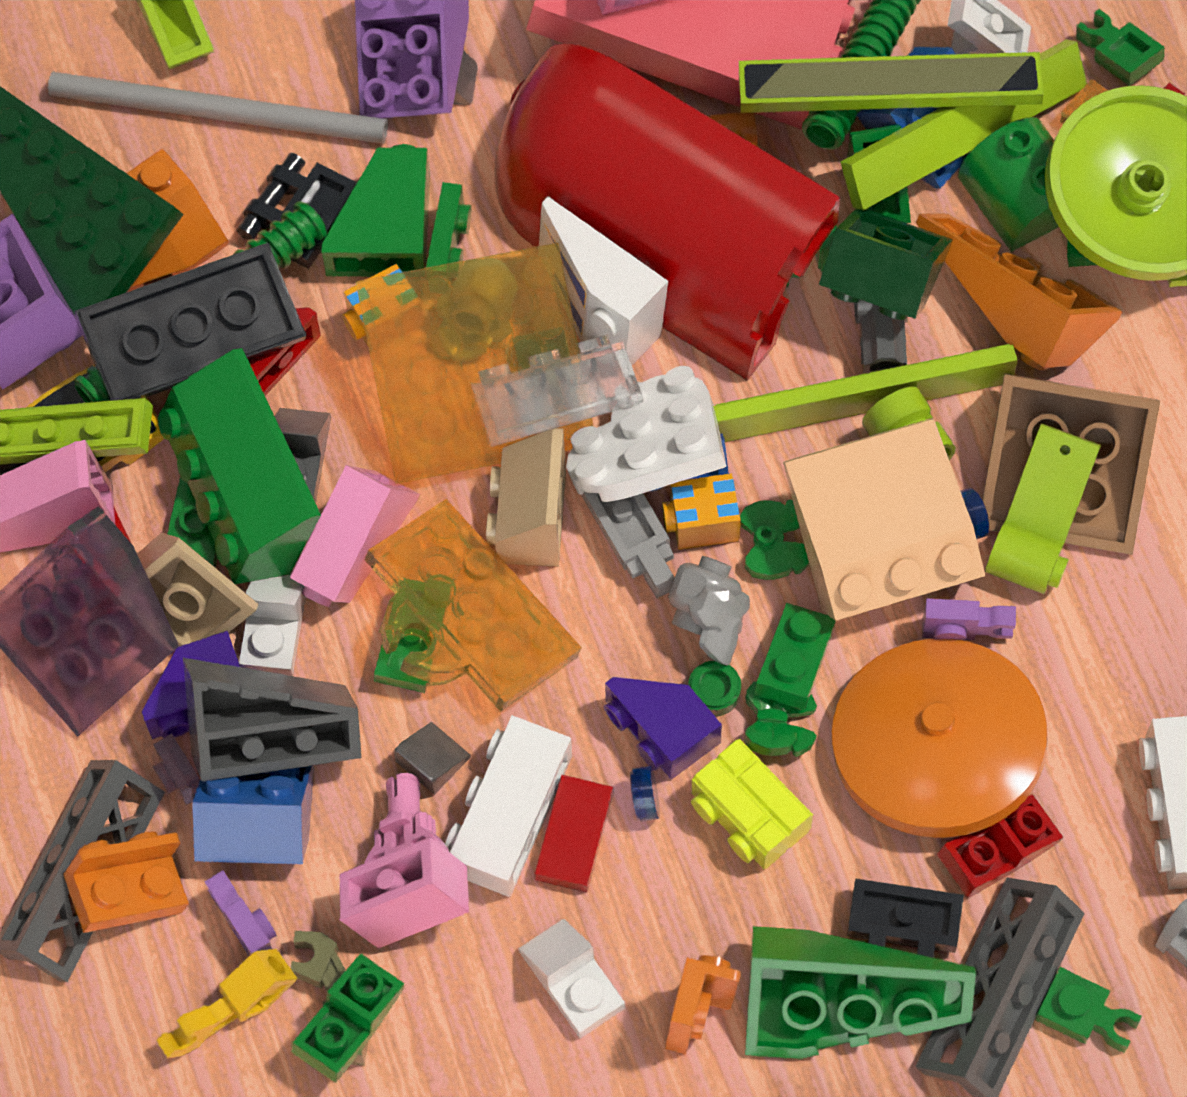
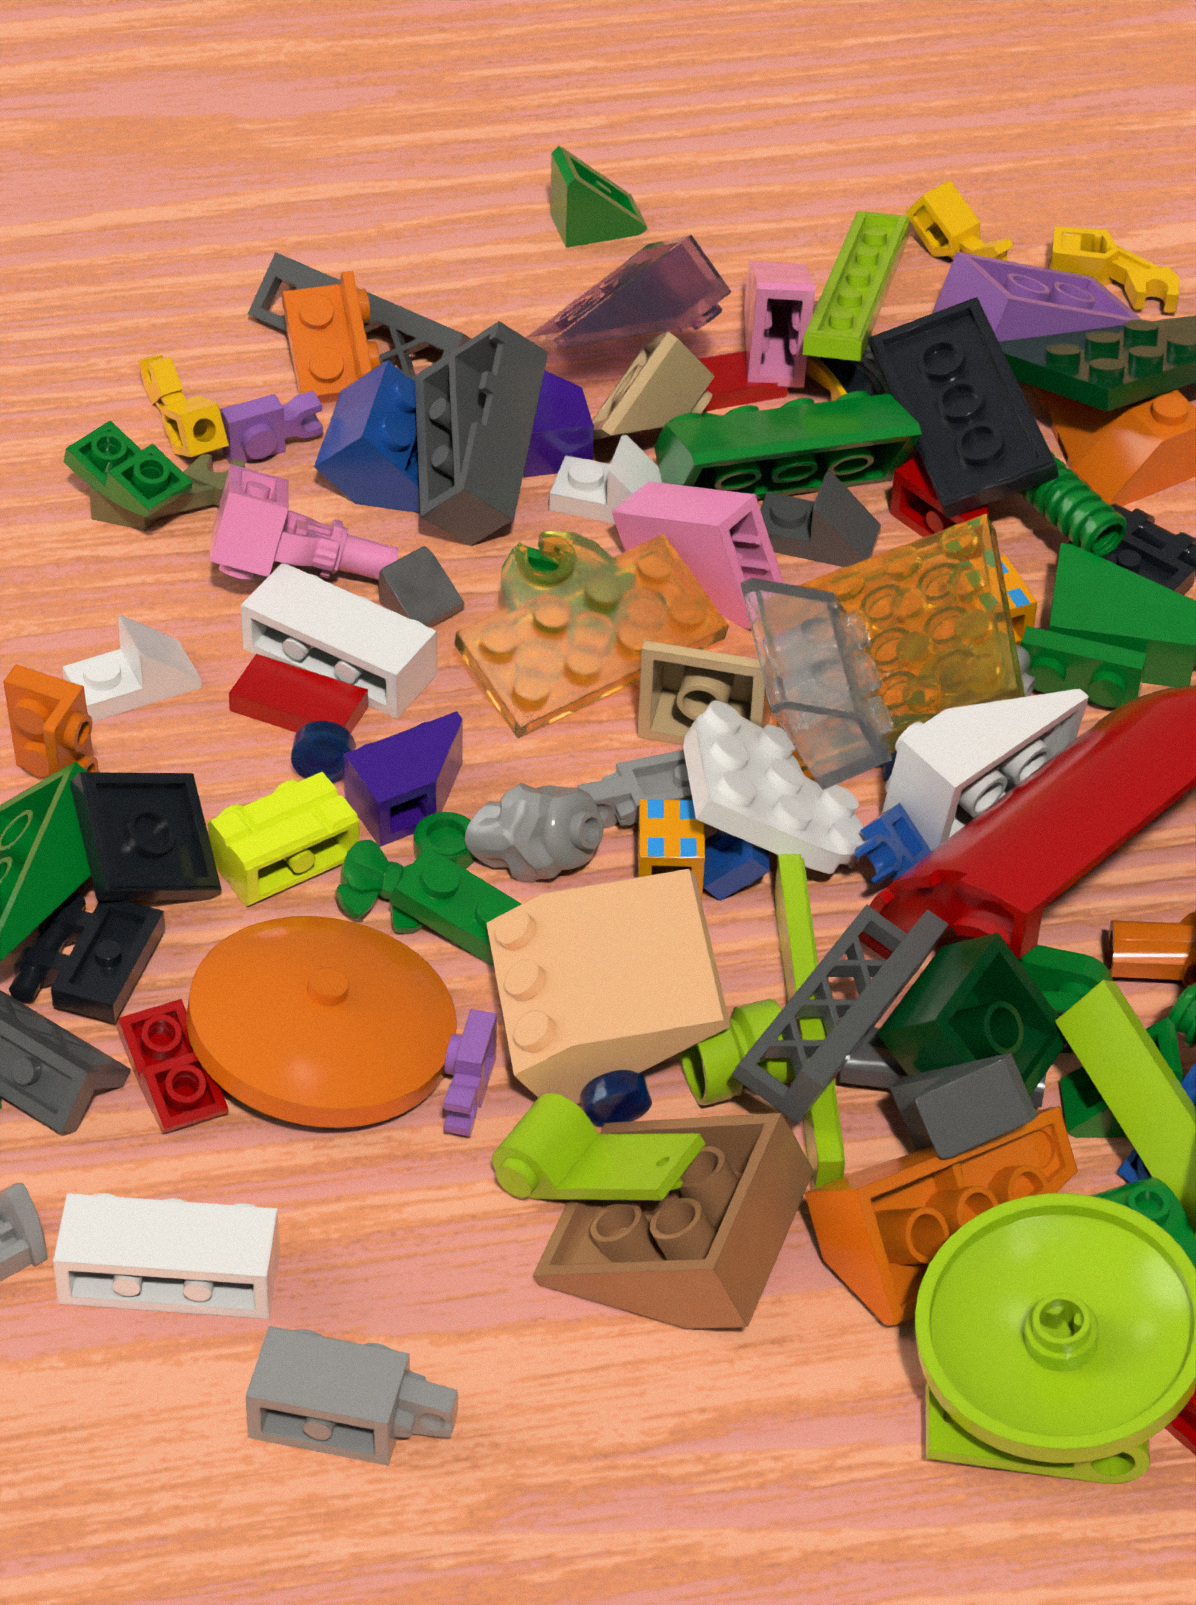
camera: 95 degrees right, 20 degrees down
(678, 347) = (892, 844): none -> blue plate
(792, 902) = (145, 836): none -> black tile
(891, 340) = (857, 1015): none -> dark grey fence
(967, 249) = (963, 1104): none -> dark grey slope

